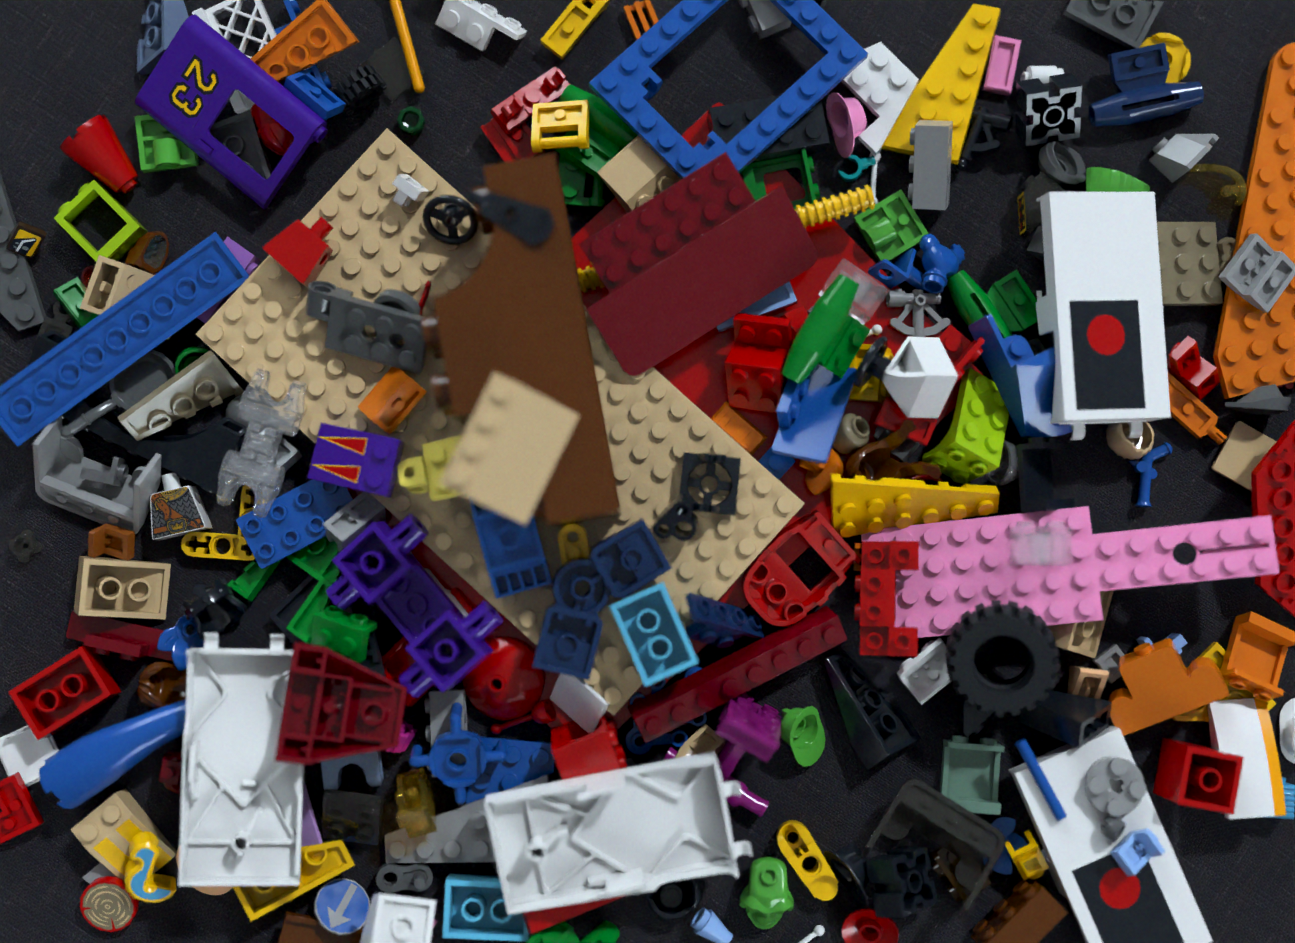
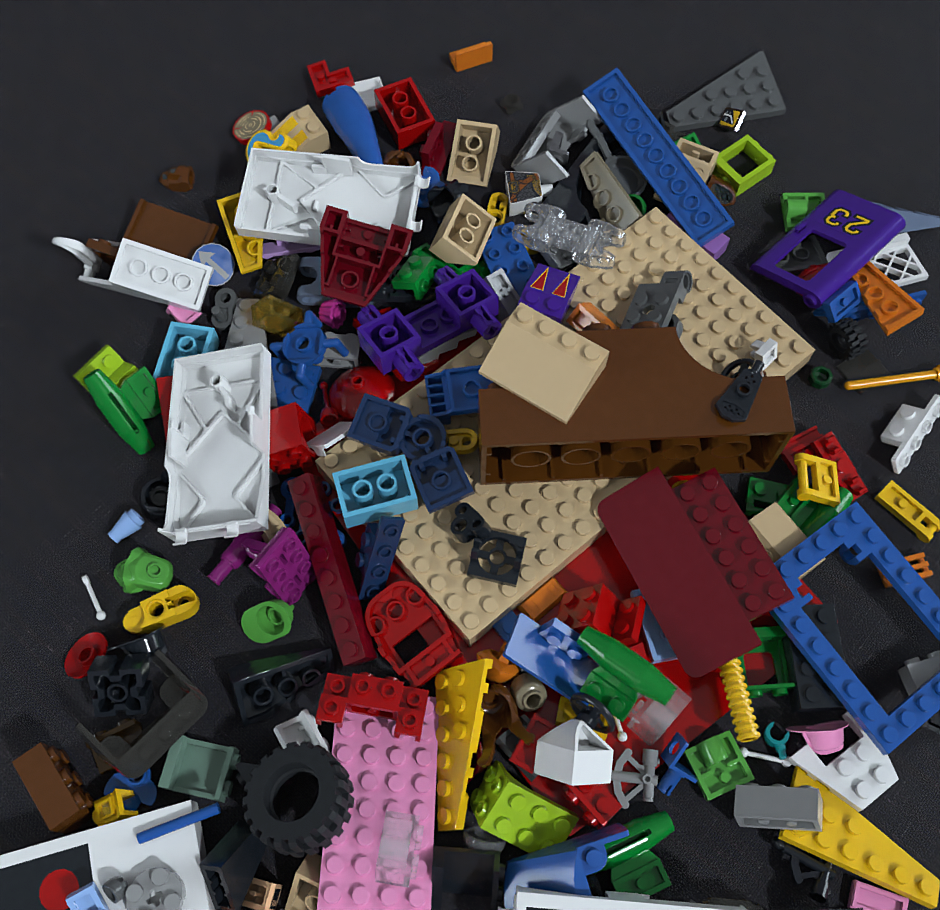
camera: 100 degrees right, 20 degrees down
(101, 154) = (796, 167): red cone -> none
(111, 541) = (508, 149): dark orange bracket -> none
(270, 581) = (463, 233): none -> tan slope
(302, 249) = (717, 274): red torso -> none
(938, 263) = (682, 805): blue animal -> none

